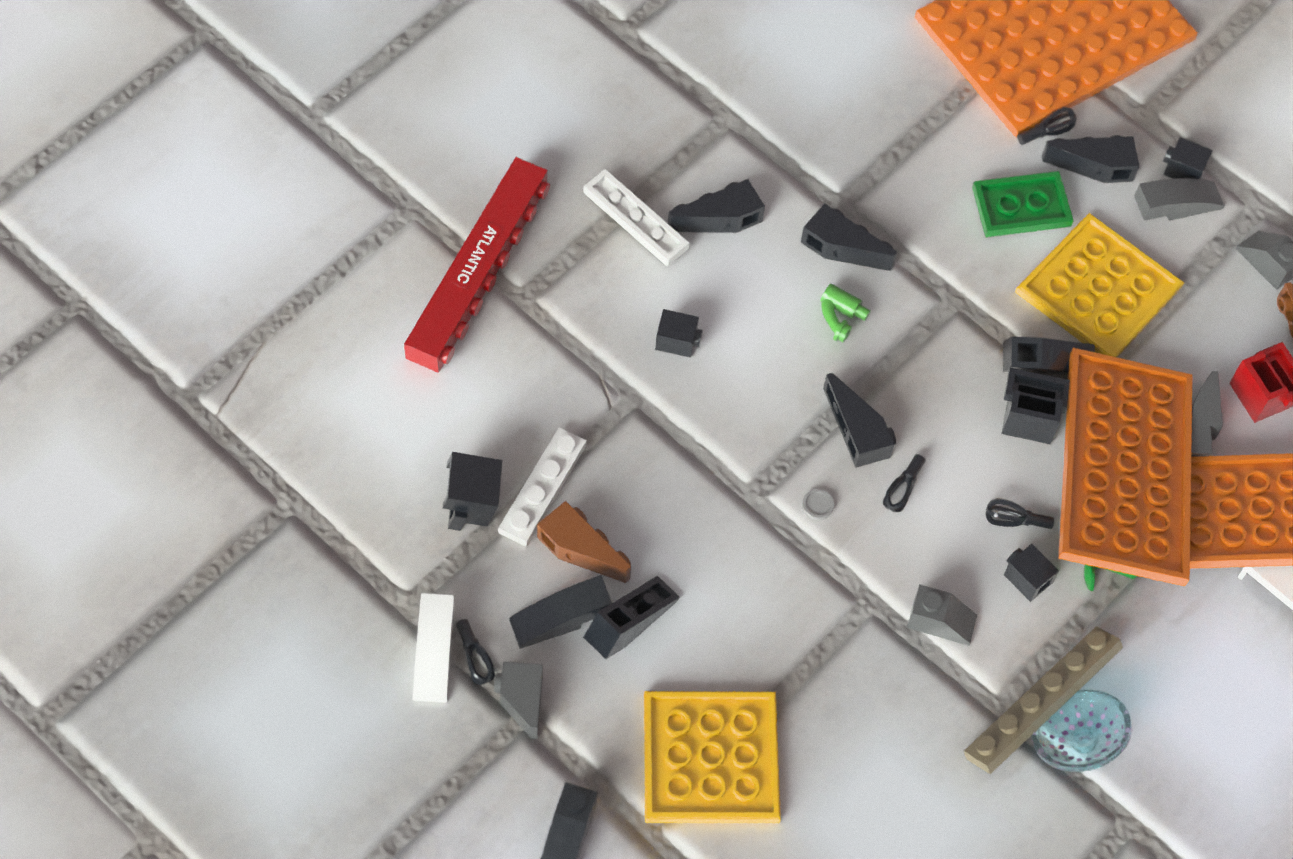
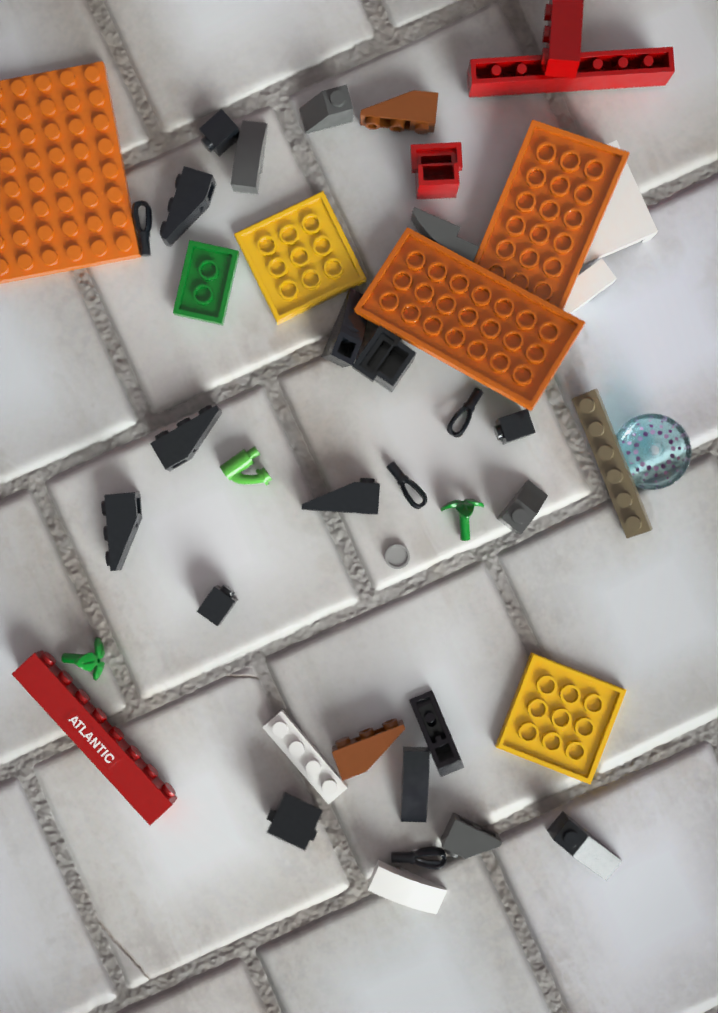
camera: 65 degrees left, 25 degrees up
(561, 224) = (89, 660): none -> green plant
(636, 217) = (100, 594): white plate -> none
(908, 549) = (465, 510): none -> green plant
(1228, 588) = (589, 285): none -> white slope

